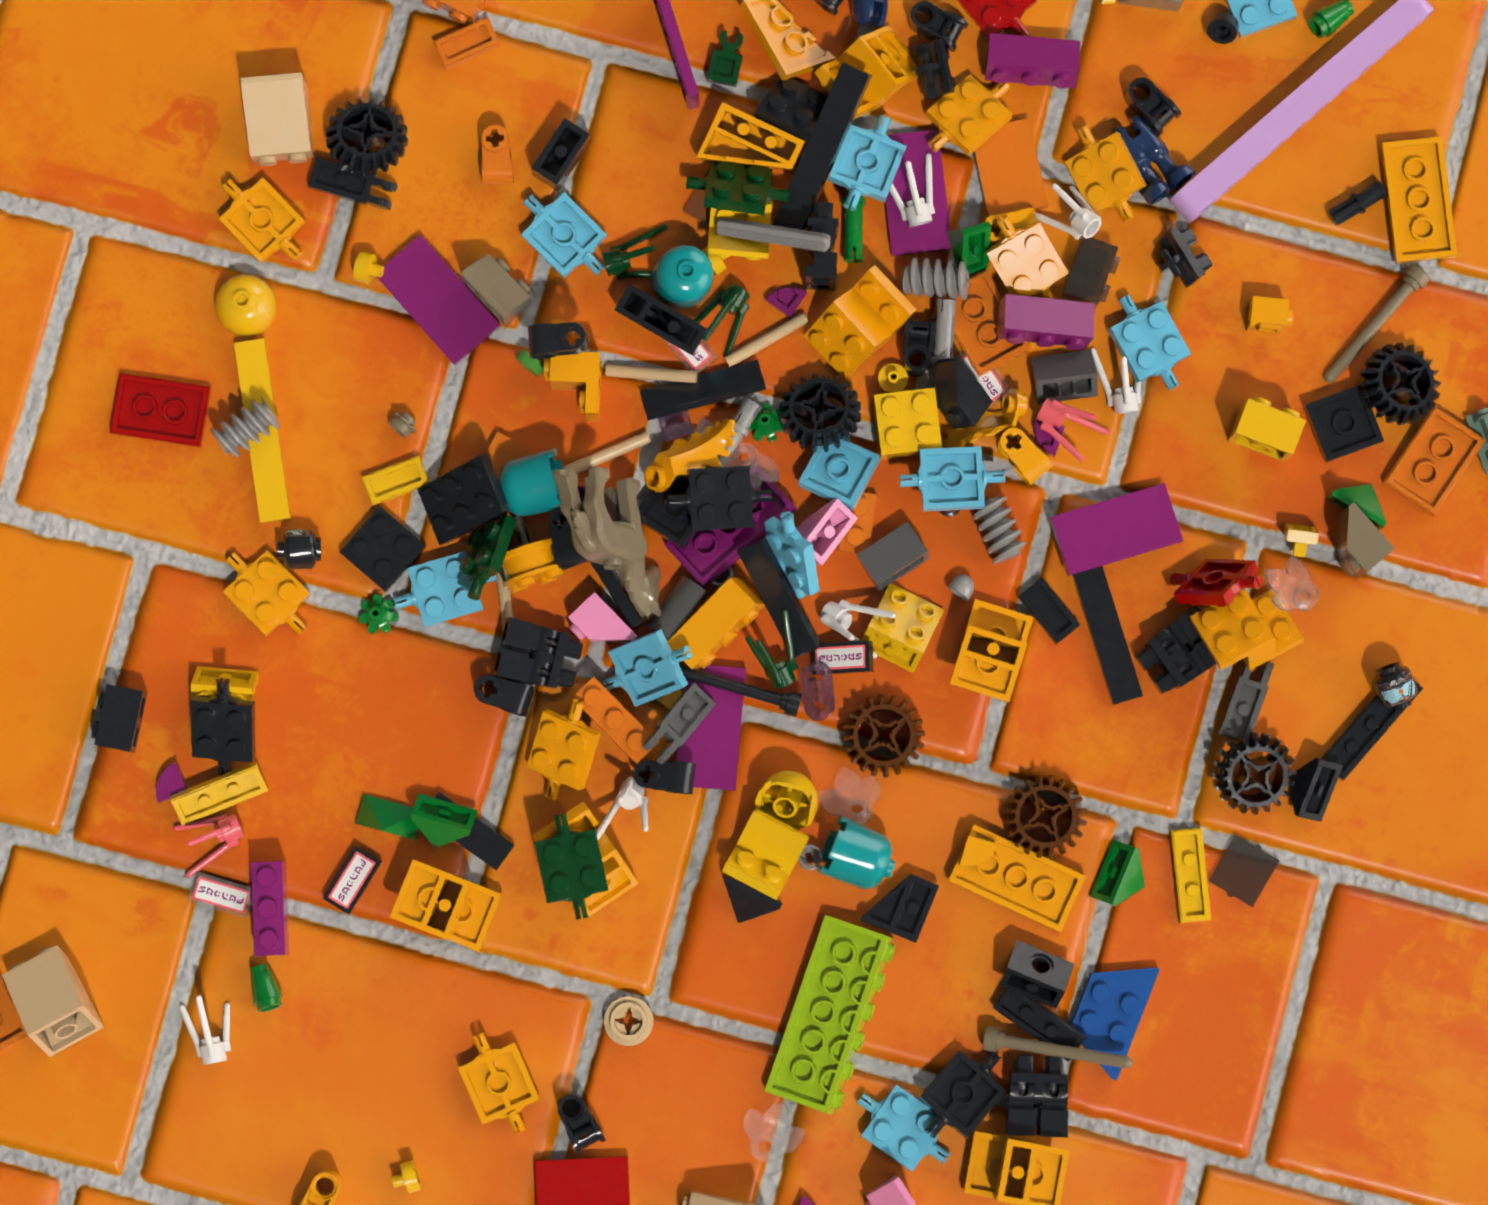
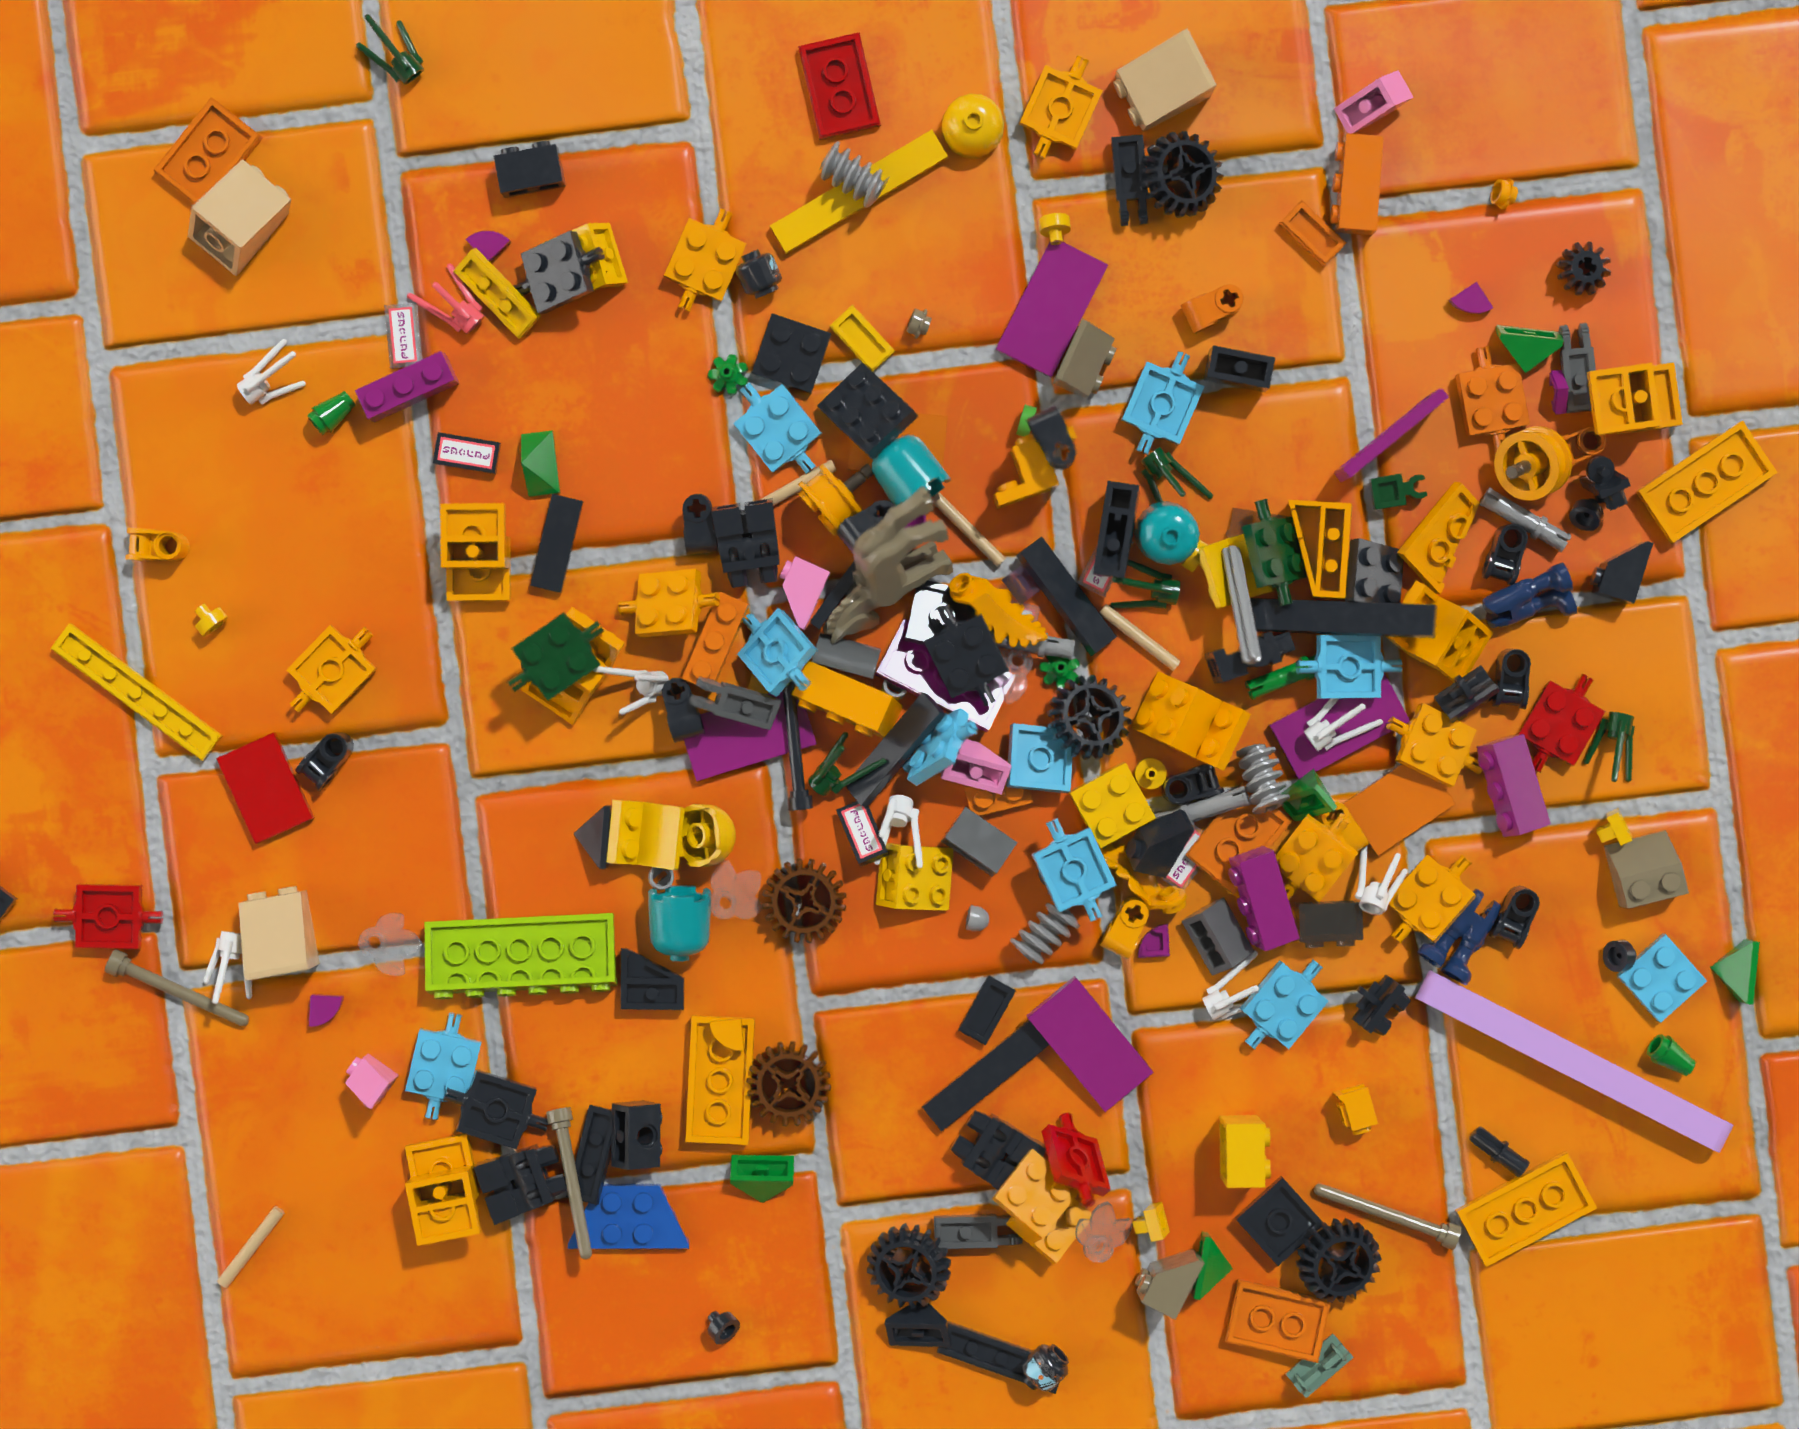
camera: 70 degrees right, 5 degrees up
(442, 820) = (556, 515): green slope -> none
(485, 554) = (822, 453): dark green plate -> none
(638, 1032) = (426, 760): tan gear -> none
(651, 373) = (1062, 541): tan bar -> none
(786, 299) = (1186, 641): magenta tile -> none
(824, 689) = (823, 826): beam -> none
(991, 651) = (924, 972): light orange bracket -> none
(1054, 413) = (1178, 942): coral plant -> none
(1190, 875) = (789, 1242): yellow tile -> none
(1243, 870) = (814, 1290): clear smoke piece -> none
(1244, 966) = (722, 1327): none -> black tile

